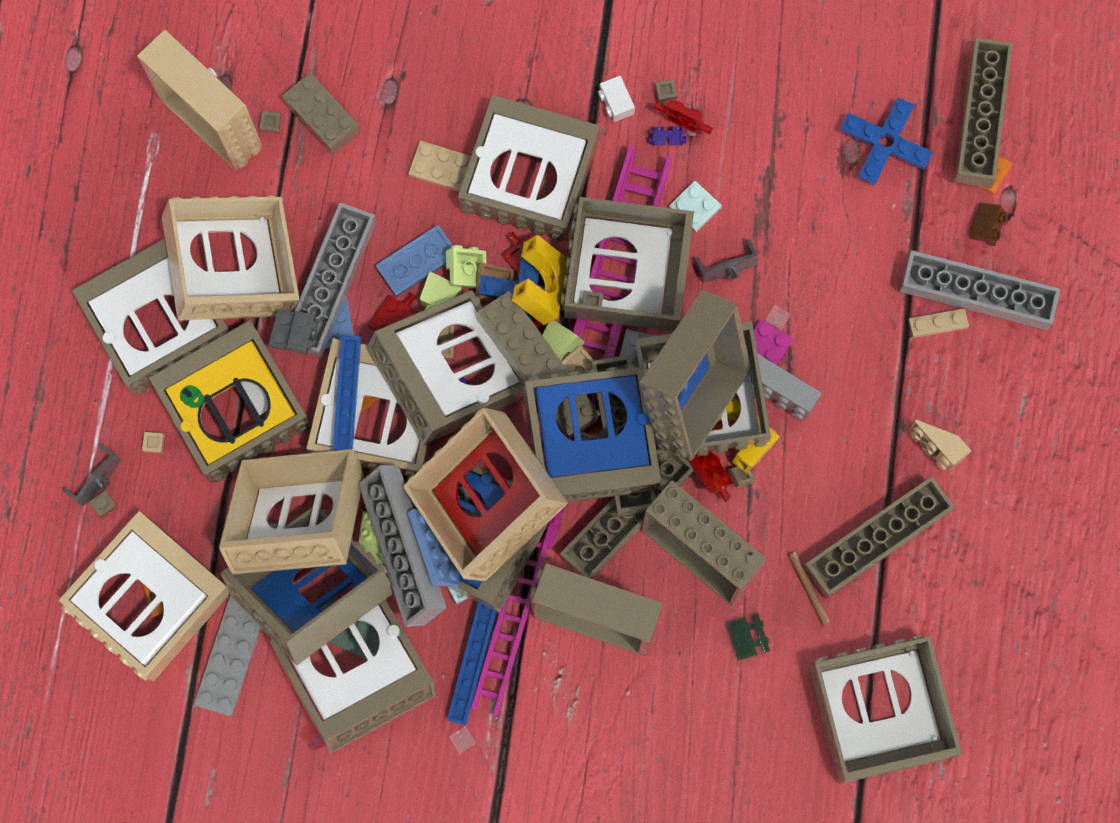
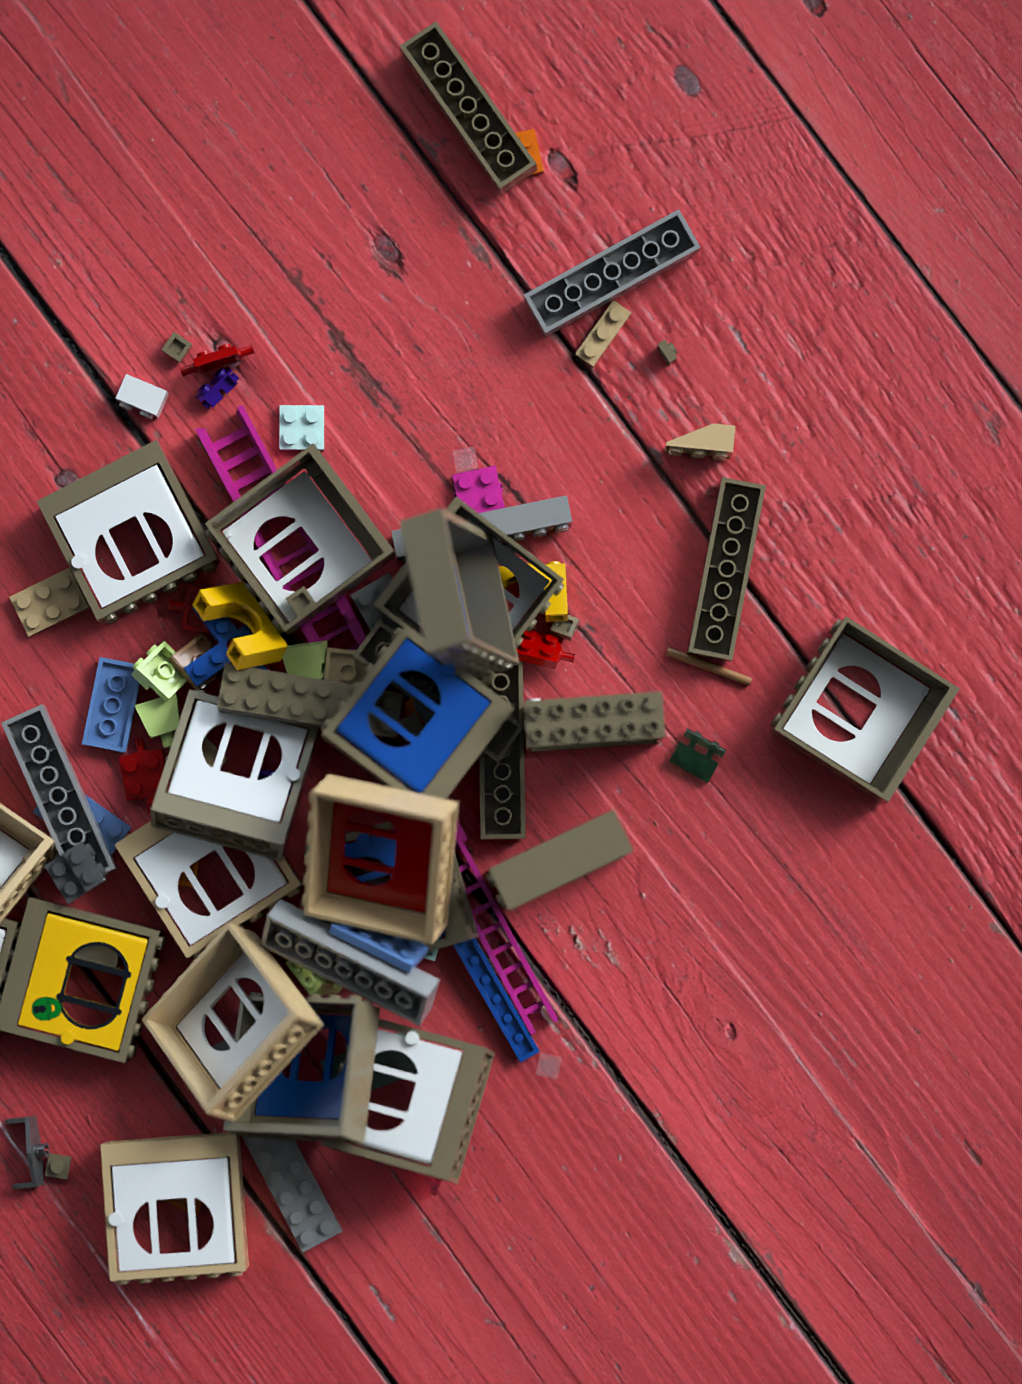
camera: 45 degrees left, 10 degrees up
(153, 442) = (48, 1075): tan plate -> none
(347, 393) = (174, 880): blue plate -> none
(730, 267) = (384, 454): flat silver piece -> none
(891, 130) = (404, 196): blue piece -> none
(969, 370) = (668, 351): none -> dark tan plate
(988, 223) = (563, 204): reddish brown bracket -> none

